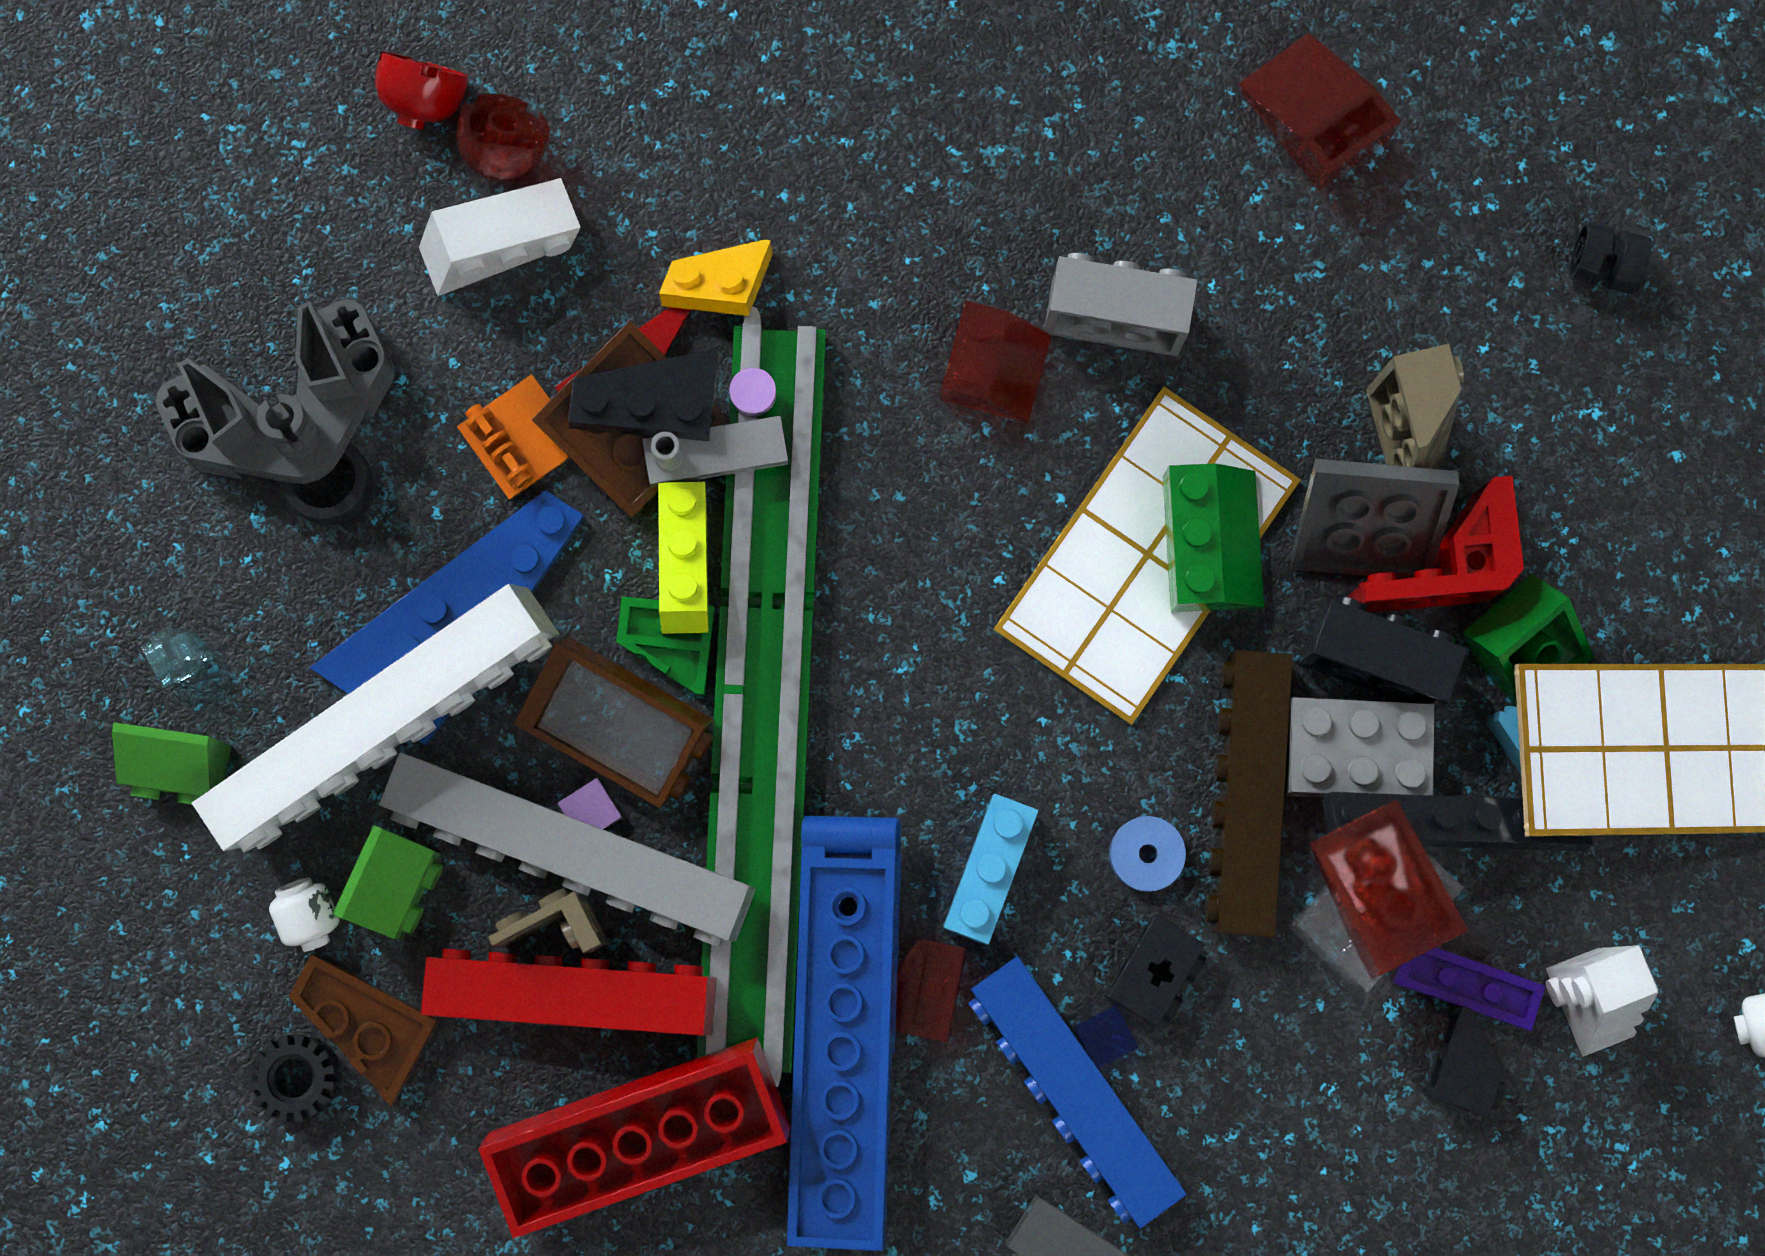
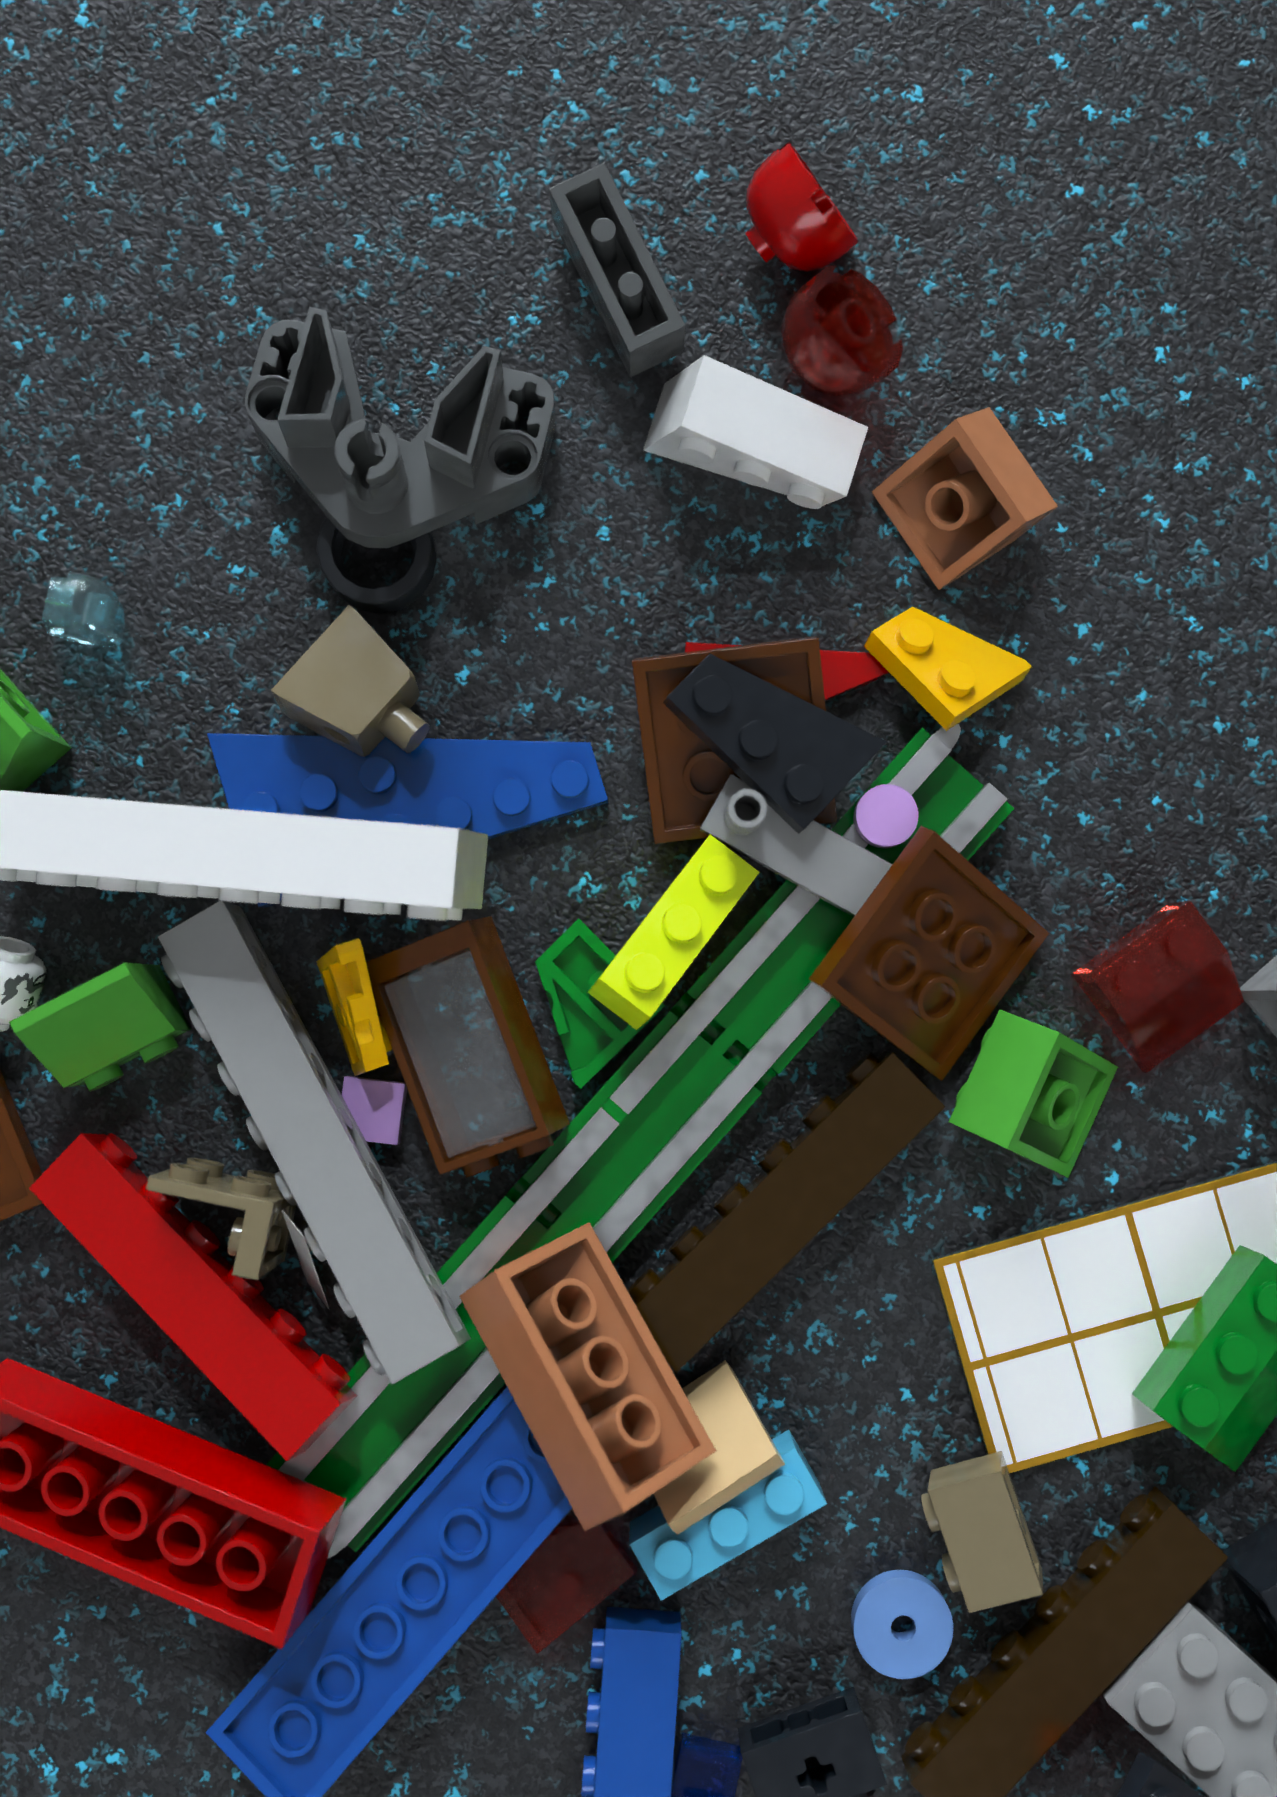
camera: 45 degrees right, 5 degrees up
(338, 203) = (617, 269): none -> dark grey brick
(378, 569) = (353, 689): none -> dark tan torso
(508, 440) = (593, 660): orange hinge -> none
(528, 752) = (354, 1006): none -> yellow wing
(620, 922) = (305, 1259): none -> white sticker
(650, 174) = (964, 497): none -> nougat slope
(835, 844) = (587, 1375): none -> nougat slope
(843, 450) = (930, 953): none -> reddish brown plate
(878, 667) = (783, 1206): none -> dark brown brick
(943, 839) = (741, 1456): none -> tan tile
(971, 483) = (1033, 1092): none -> bright green slope
(1146, 758) = (984, 1533): none -> dark tan brick

